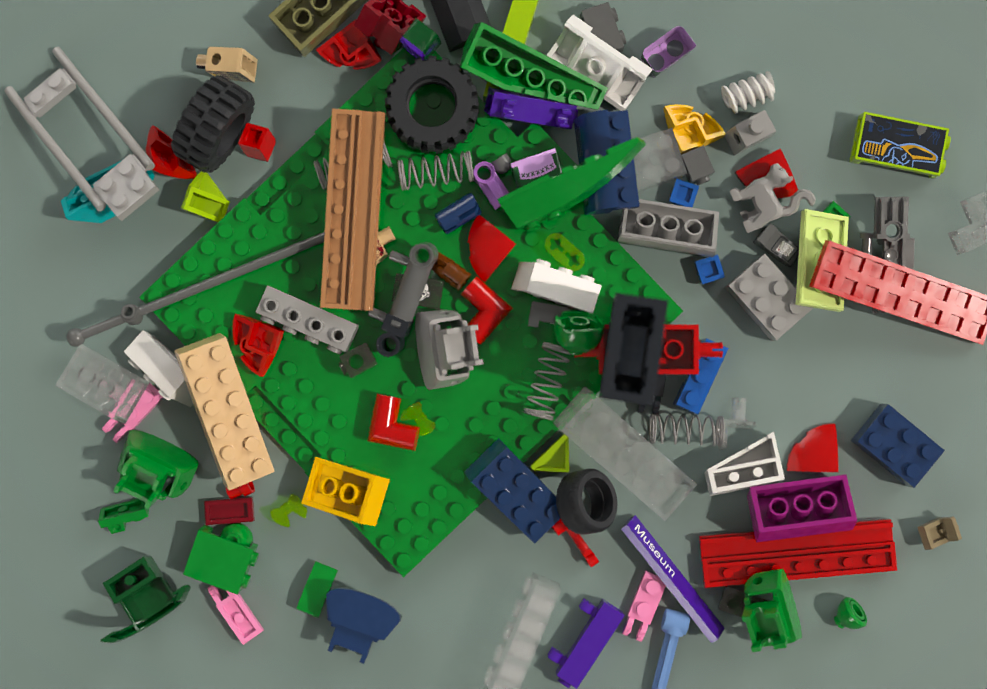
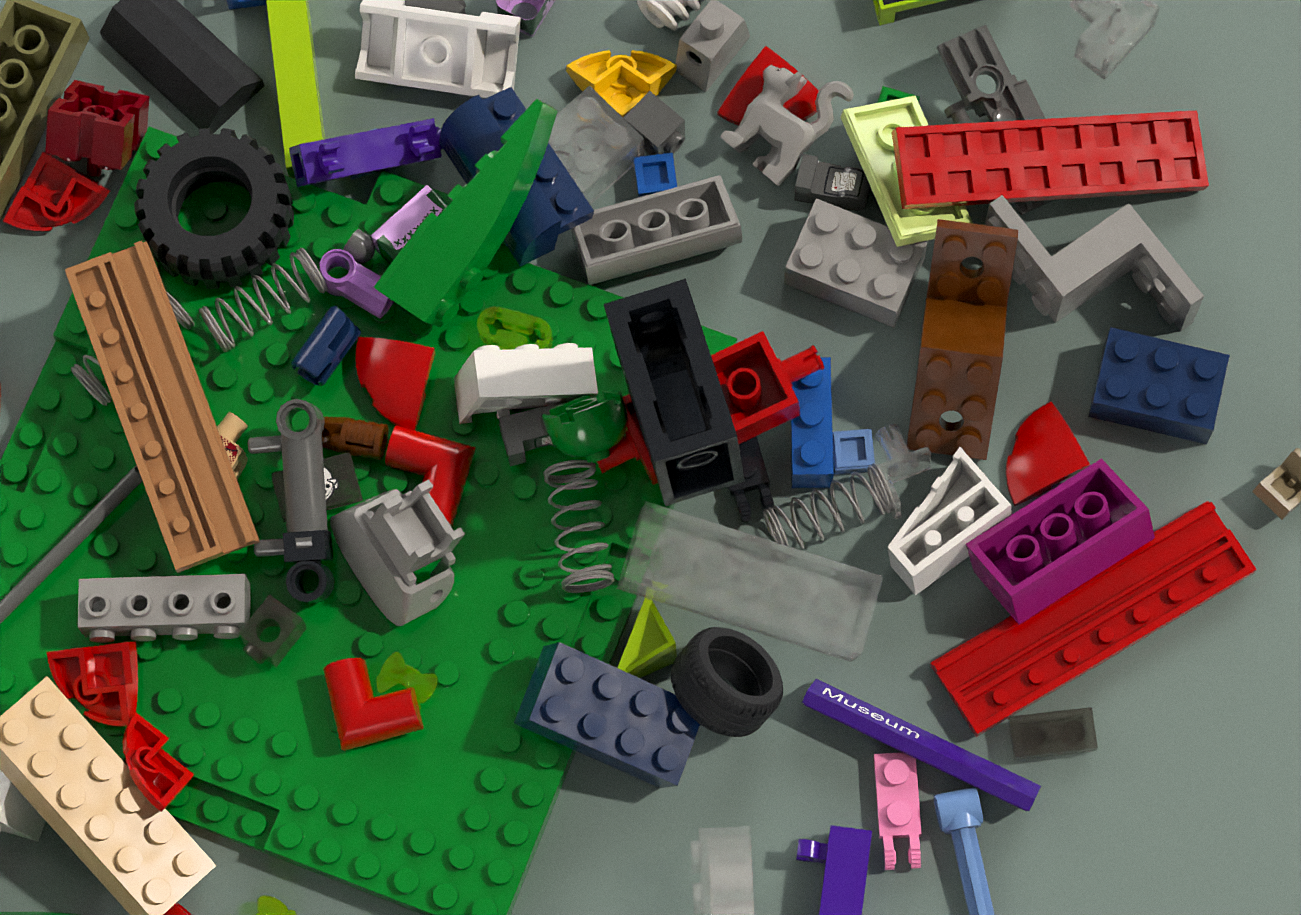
camera: 25 degrees left, 15 degrees down
(263, 406) = (151, 768): none -> red brick
(345, 491) = (342, 839): yellow slope -> none
(420, 40) = (154, 121): dark green piece -> none
(525, 70) = (332, 96): green wedge -> none
(586, 552) = (709, 744): red brick -> none
(709, 269) = (747, 265): blue plate -> none
(716, 401) = (852, 451): none -> medium blue tile
(774, 621) = (1098, 720): green piece -> none
(805, 372) = (962, 338): none -> reddish brown bracket
(850, 614) = (1220, 670): green brick -> none
(918, 359) = (1095, 262): none -> light grey bracket

